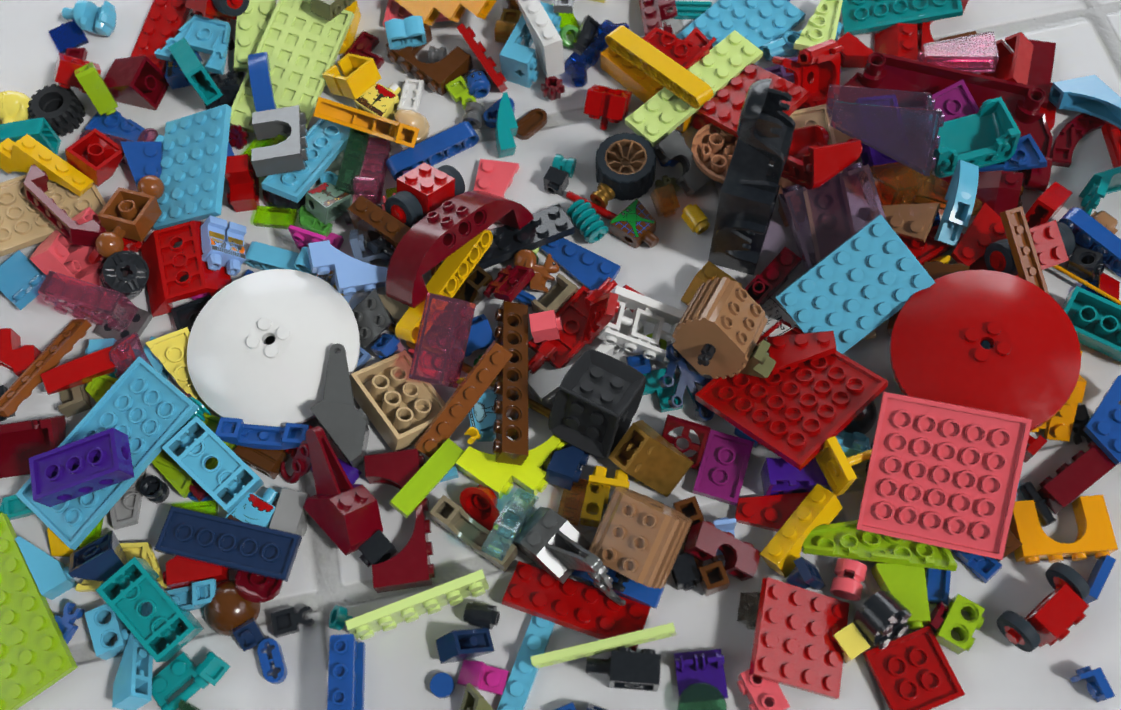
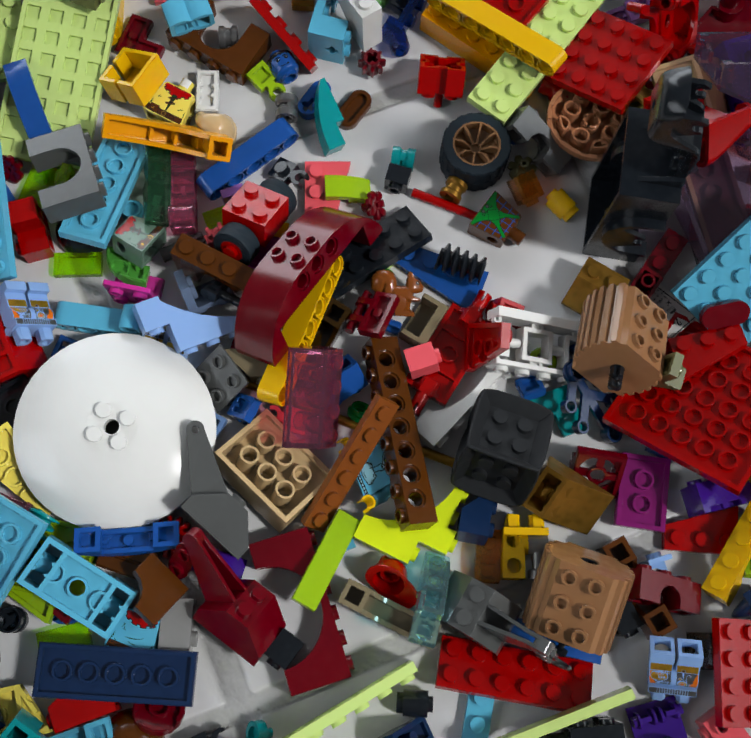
camera: 20 degrees left, 10 degrees up
(278, 478) = (158, 590): none -> reddish brown tile
(464, 165) = (288, 172): none -> black plate
(511, 183) = (346, 188): none -> lime slope
(531, 199) = (373, 205): none -> dark red plant
(587, 221) = (442, 225): teal piece -> none
(594, 253) = (461, 263): none -> black piece
(719, 619) = (672, 671): none -> light blue hips
(820, 321) = (724, 314): none -> dark red tile

